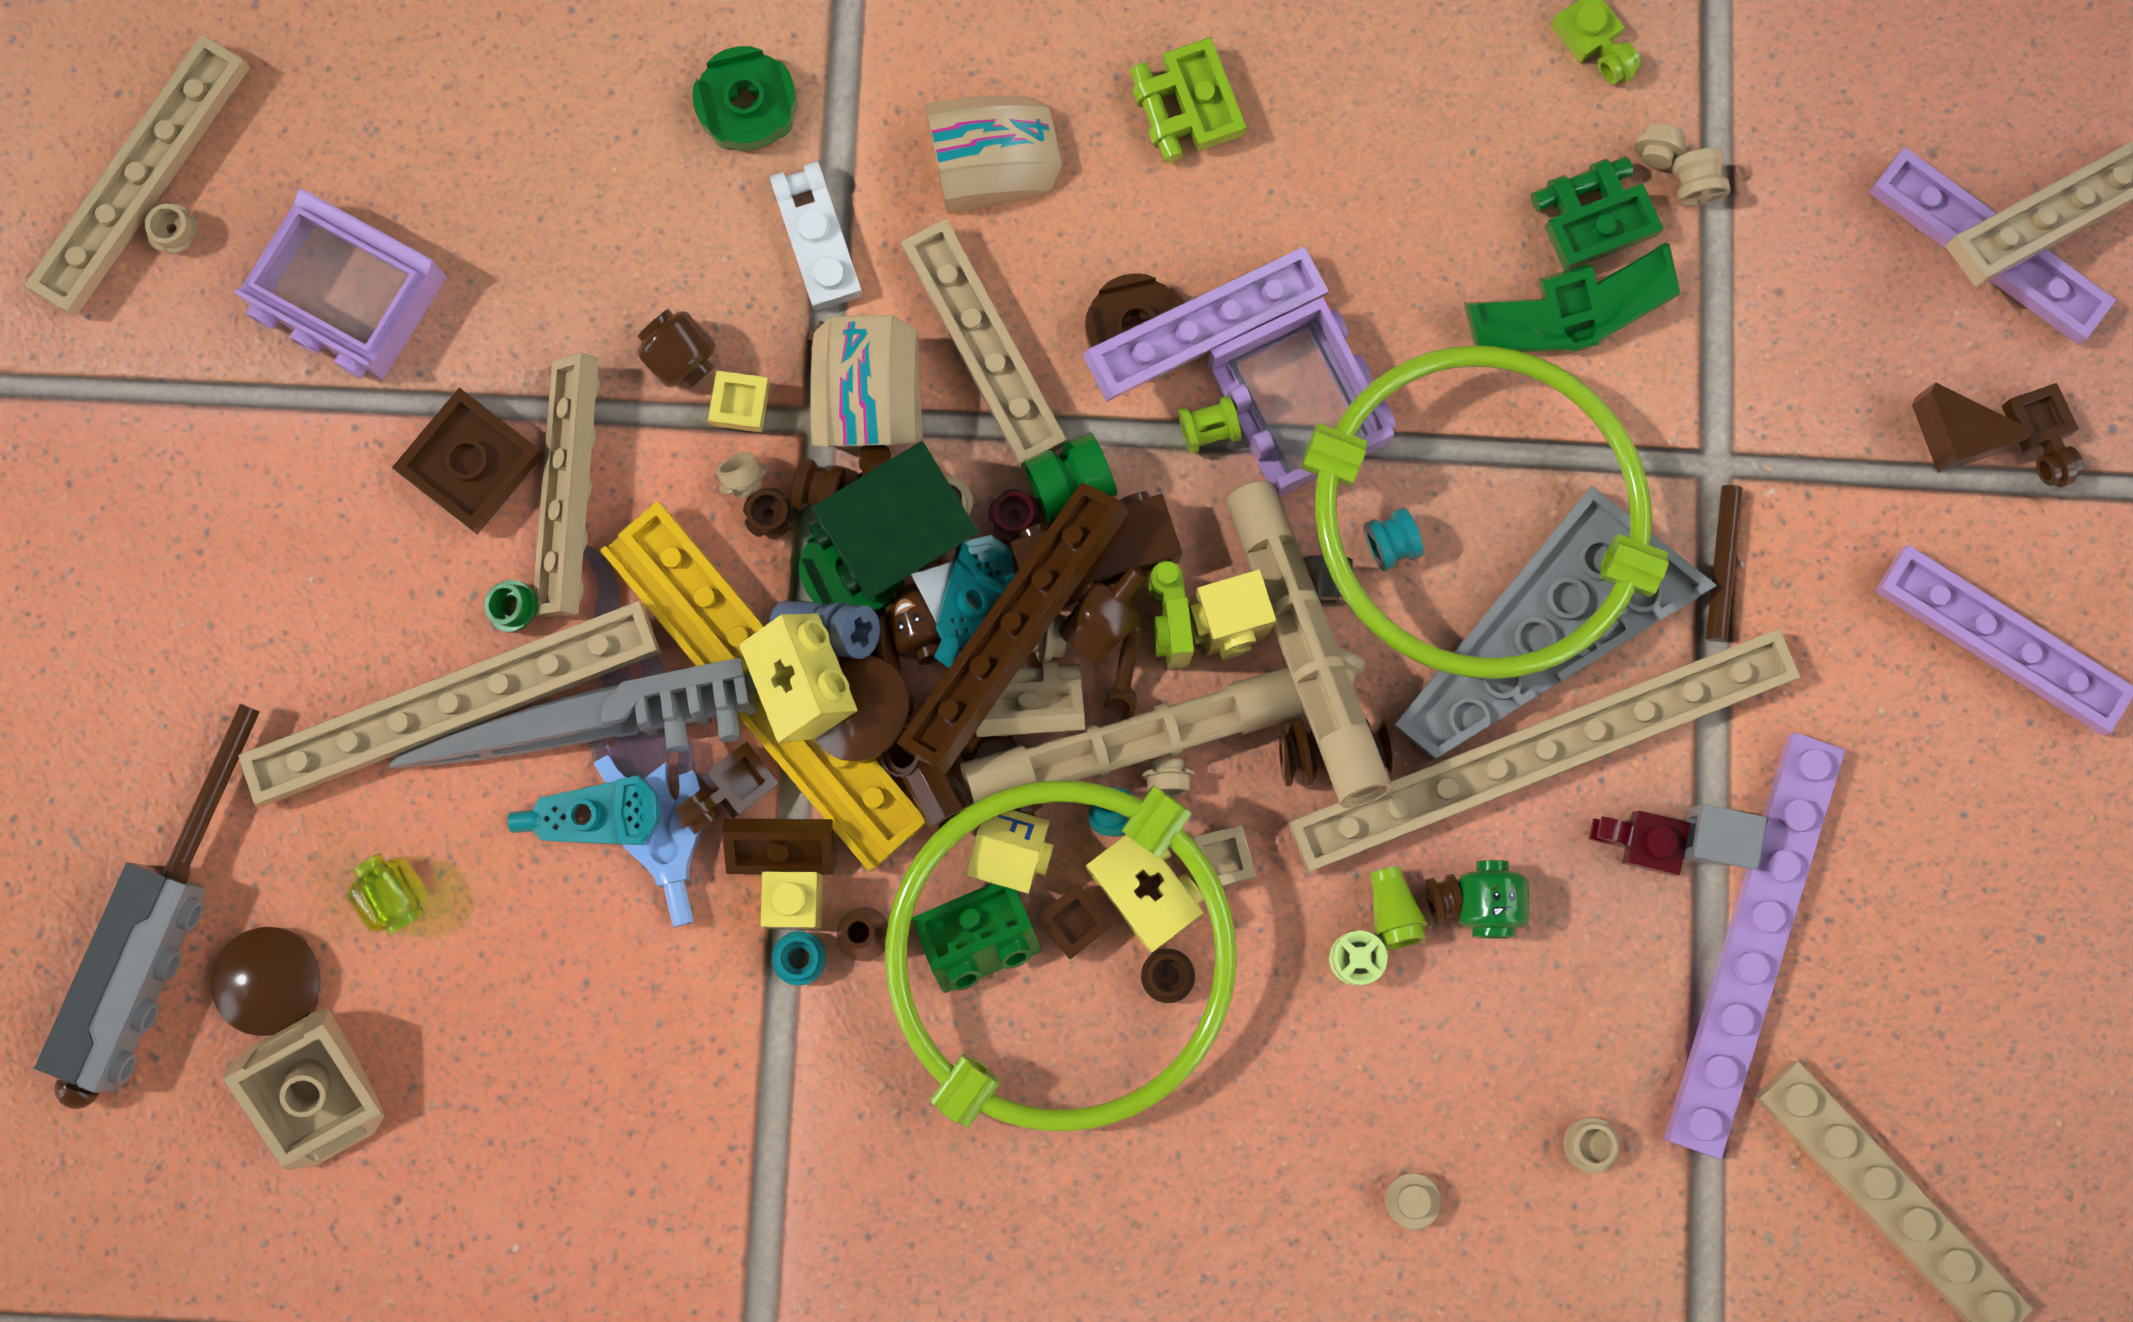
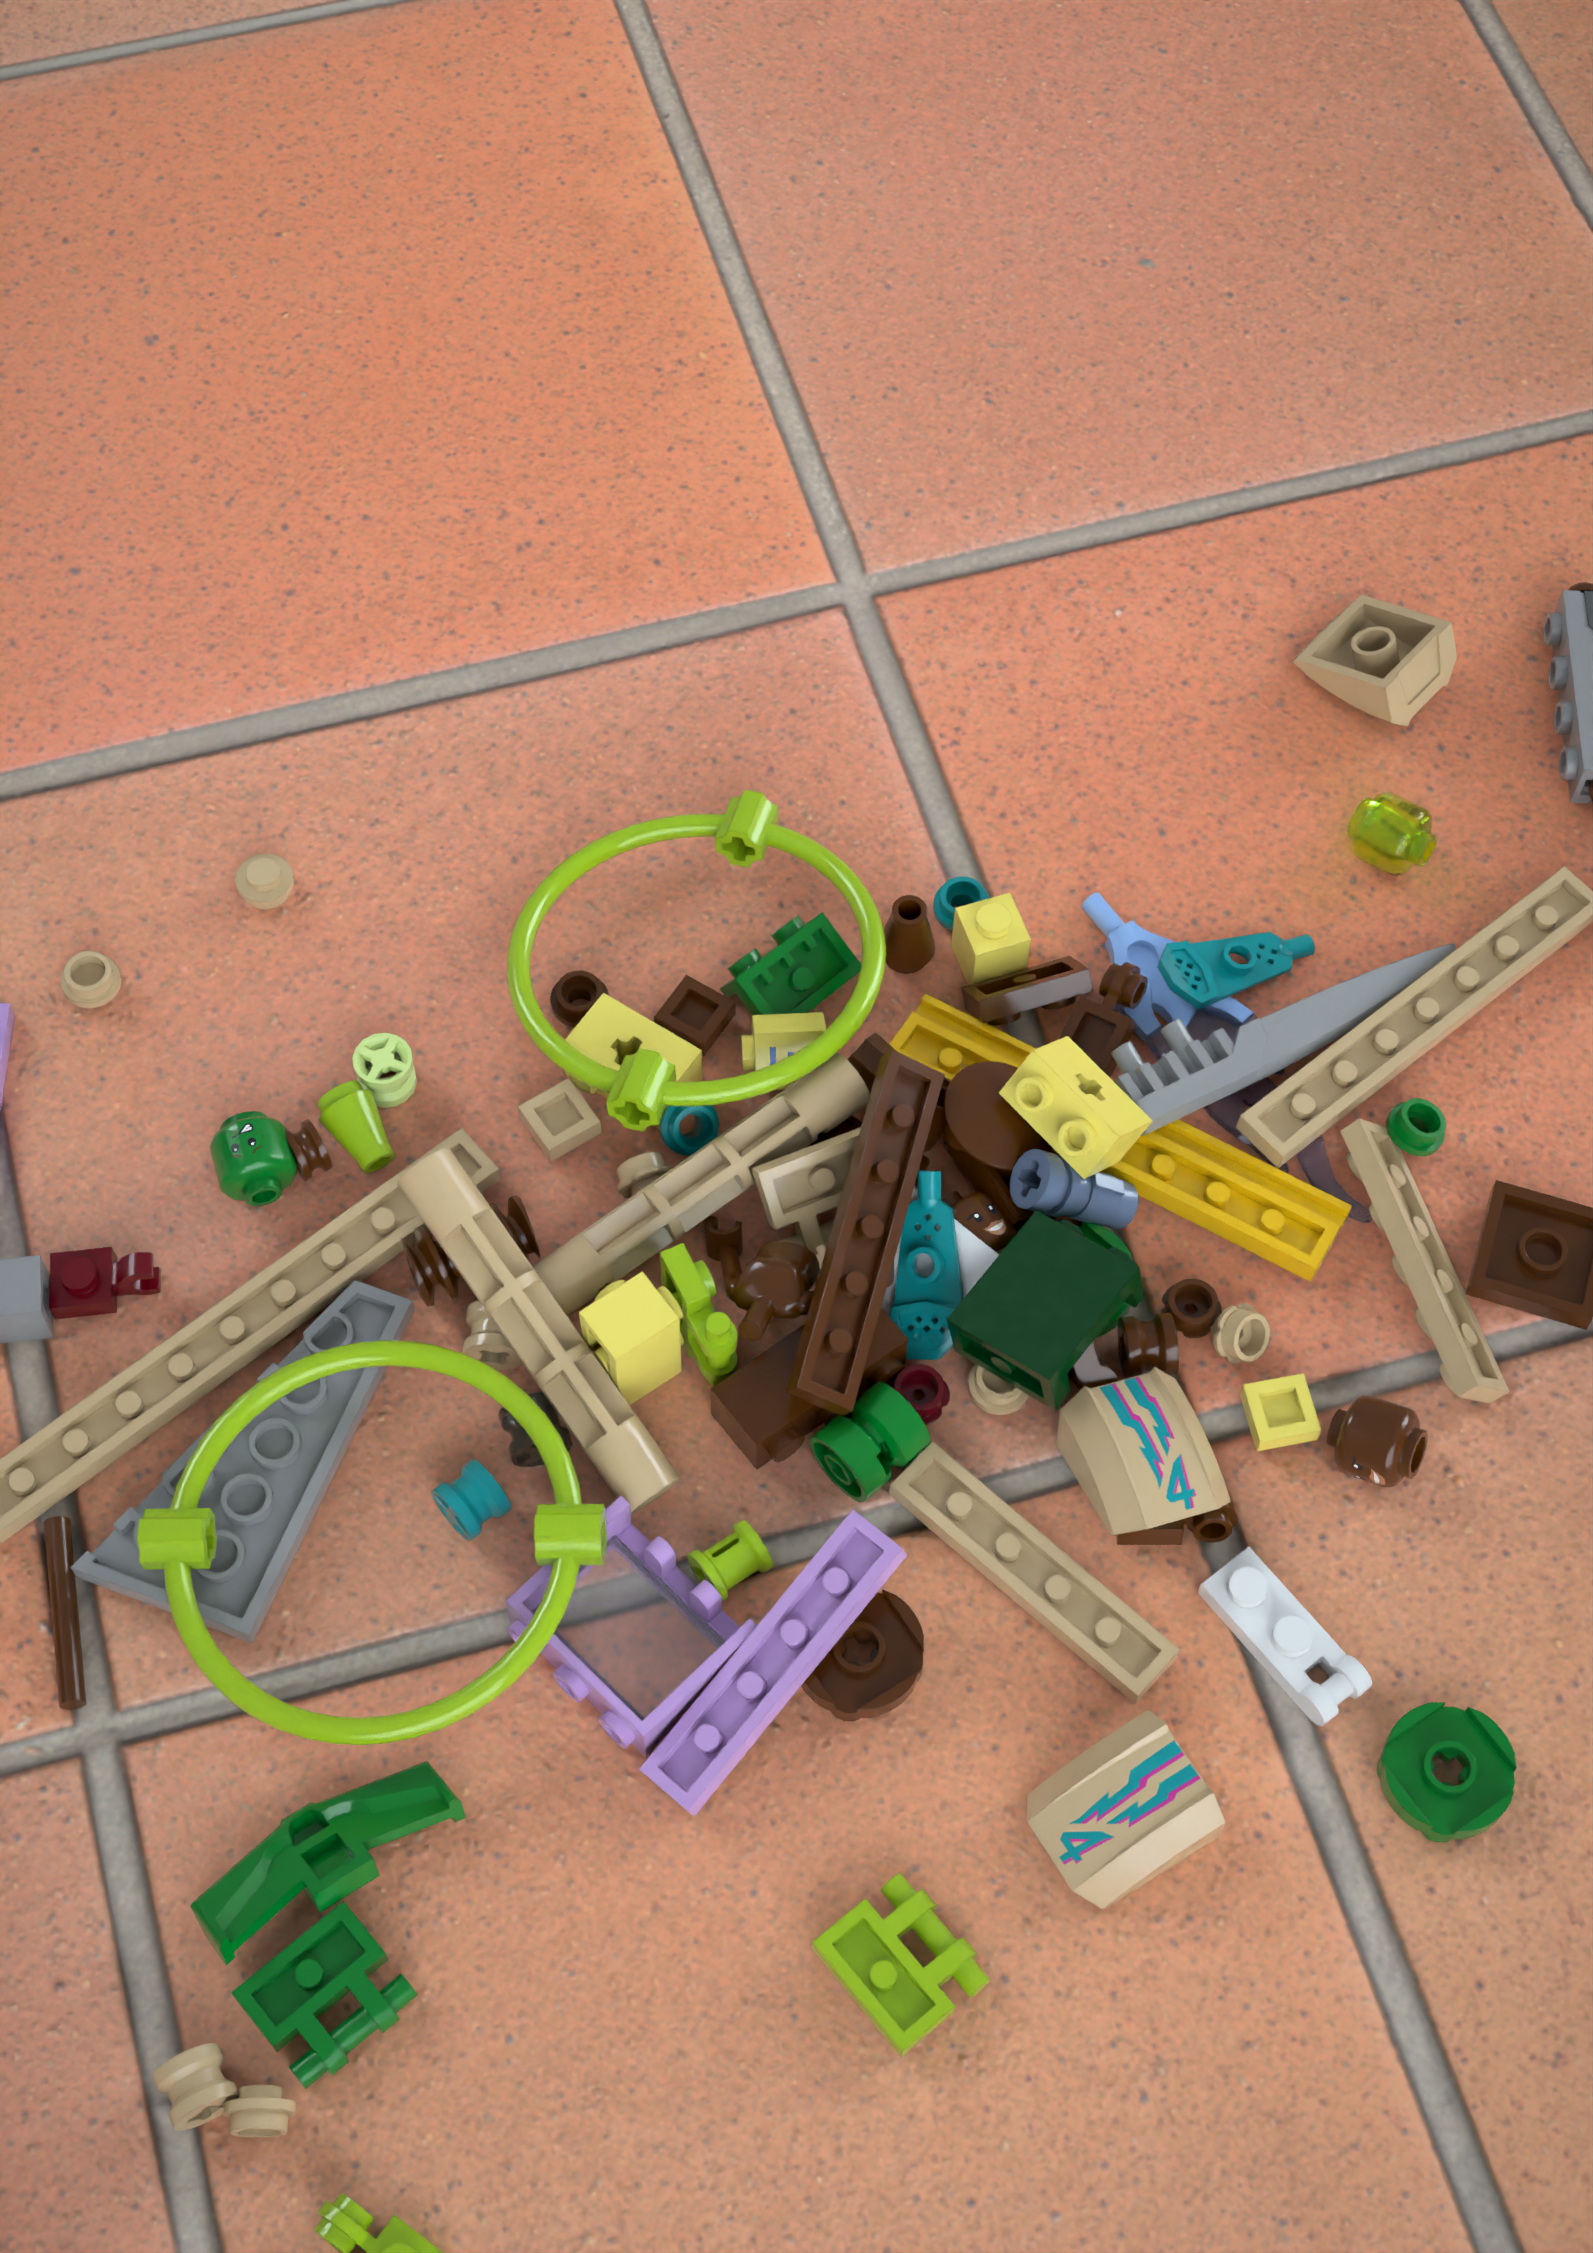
camera: 160 degrees right, 20 degrees down
(265, 981) = (1465, 739): reddish brown dish -> none

